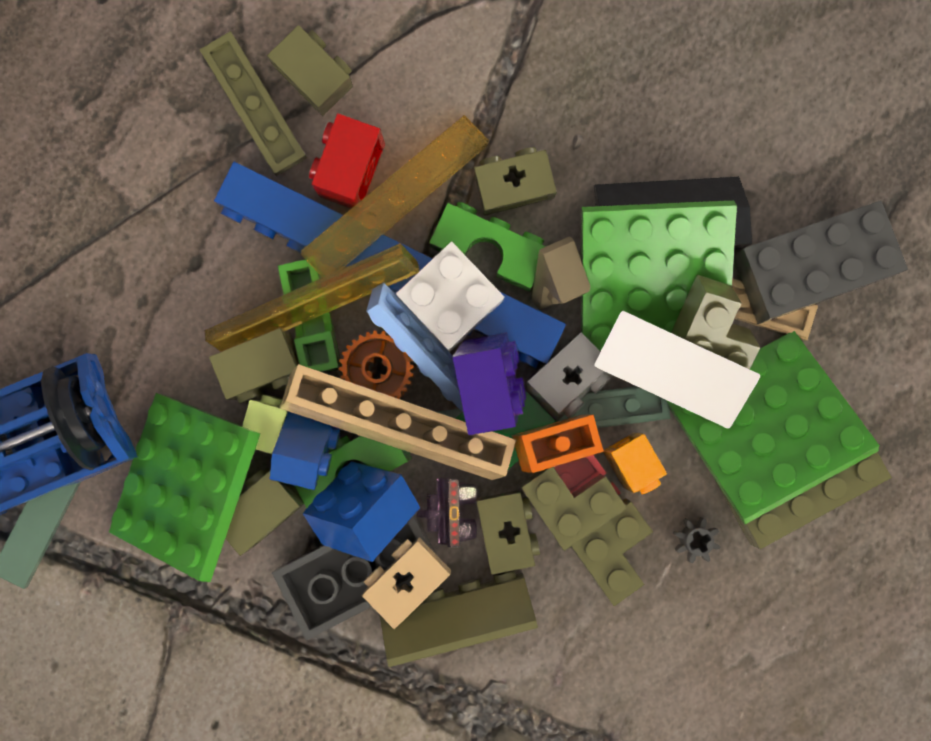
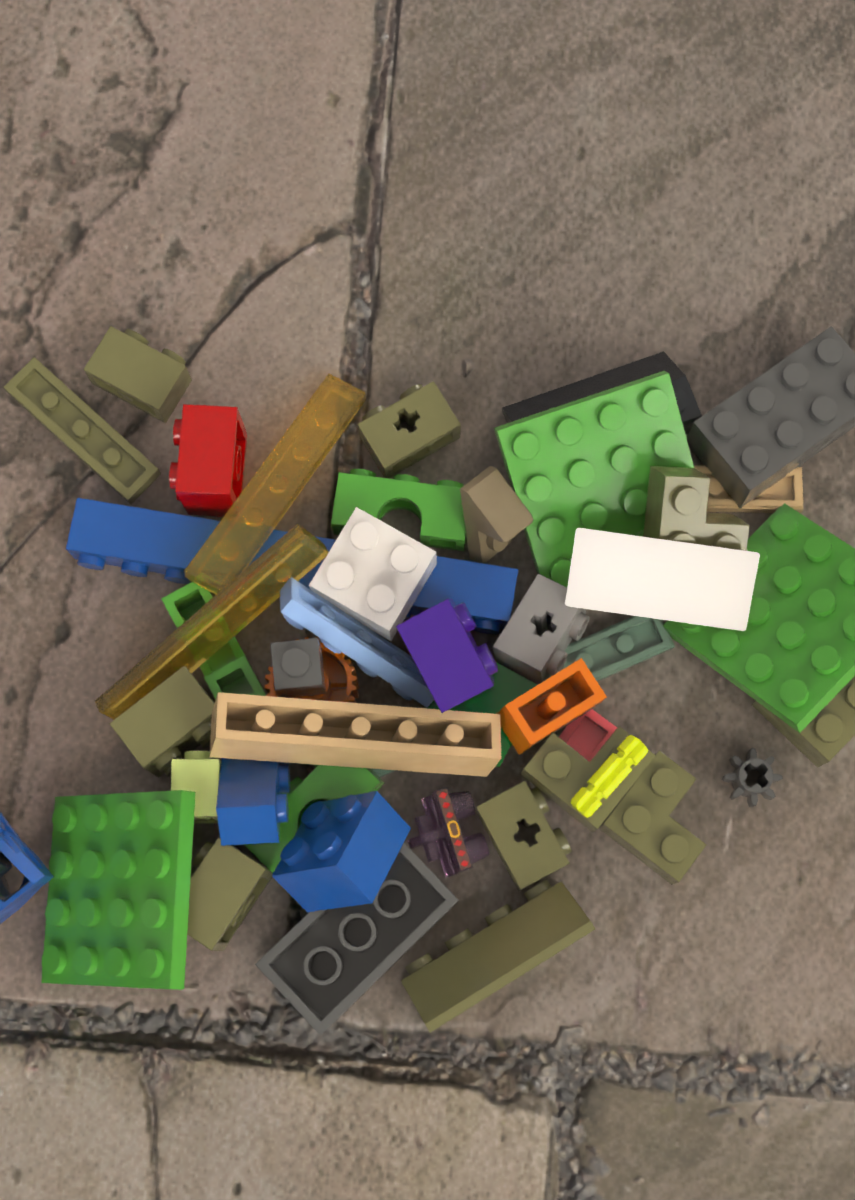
camera: 10 degrees left, 10 degrees down
(368, 357) = (298, 668): none -> dark grey brick
(398, 603) = (418, 951): tan brick -> none
(585, 516) = (609, 776): none -> neon yellow axle
(635, 463) = (649, 705): light orange brick -> none

